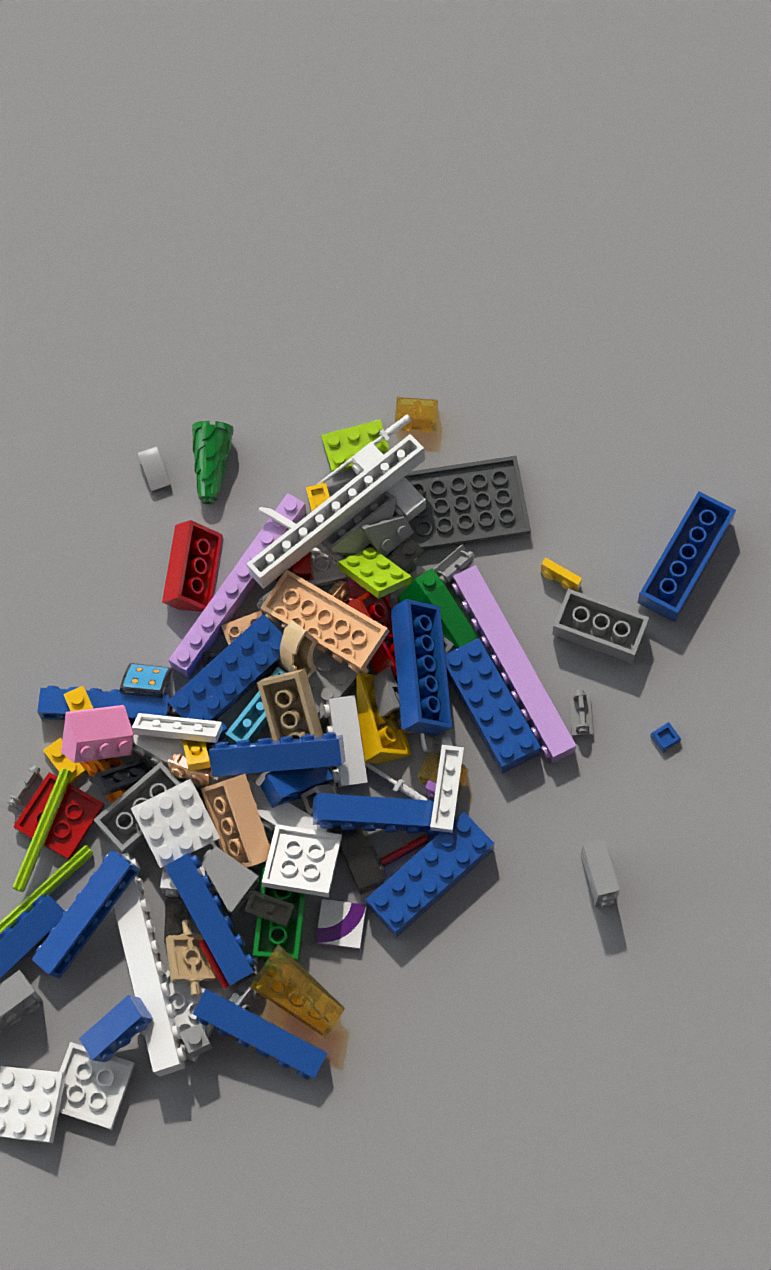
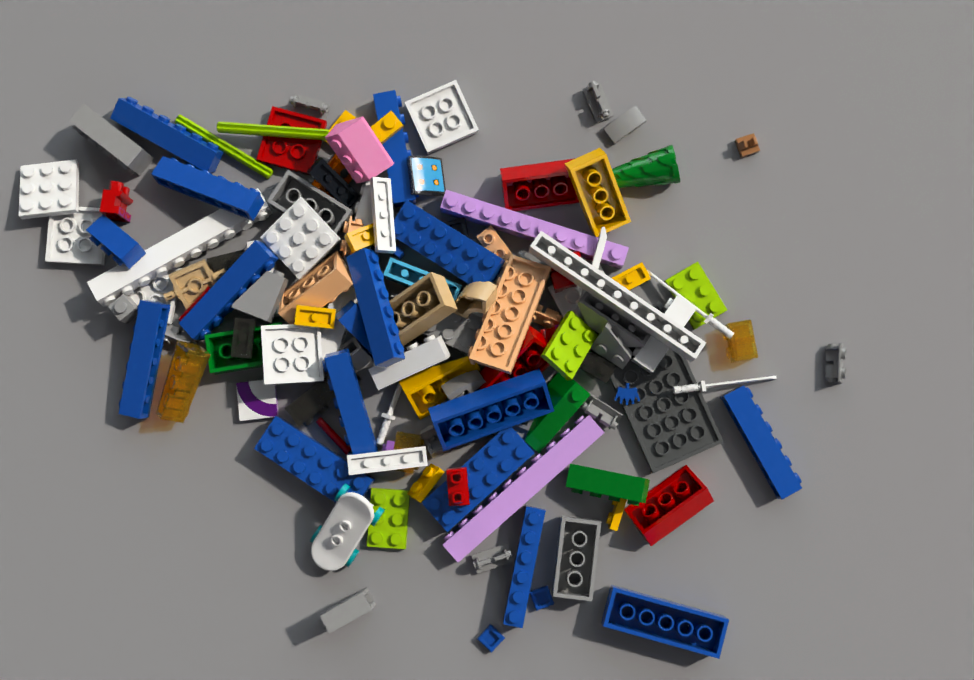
camera: 75 degrees right, 15 degrees up
(65, 1025) = (115, 202): none -> red hips
(84, 650) = (441, 117): none -> white plate
(120, 490) = (597, 101): none -> light grey hinge
(214, 358) = (747, 145): none -> medium nougat tile
(220, 506) = (598, 191): none -> yellow brick
(268, 824) = (314, 316): none -> yellow plate
(441, 534) = (627, 393): none -> blue piece
(453, 460) = (702, 386): none -> white sword
(455, 330) = (836, 370): none -> light grey hinge
(482, 761) = (425, 483): none -> yellow plate
(494, 715) = (458, 486): none -> red hips
(510, 813) = (393, 524): none -> lime plate
(523, 867) = (337, 539): none -> white piece
(525, 421) = (761, 442): none -> blue brick
(530, 573) = (607, 483): none -> green brick
(568, 524) = (669, 505): none -> red slope
(596, 681) = (524, 566): none -> blue brick
(634, 675) = (541, 597): none -> blue tile

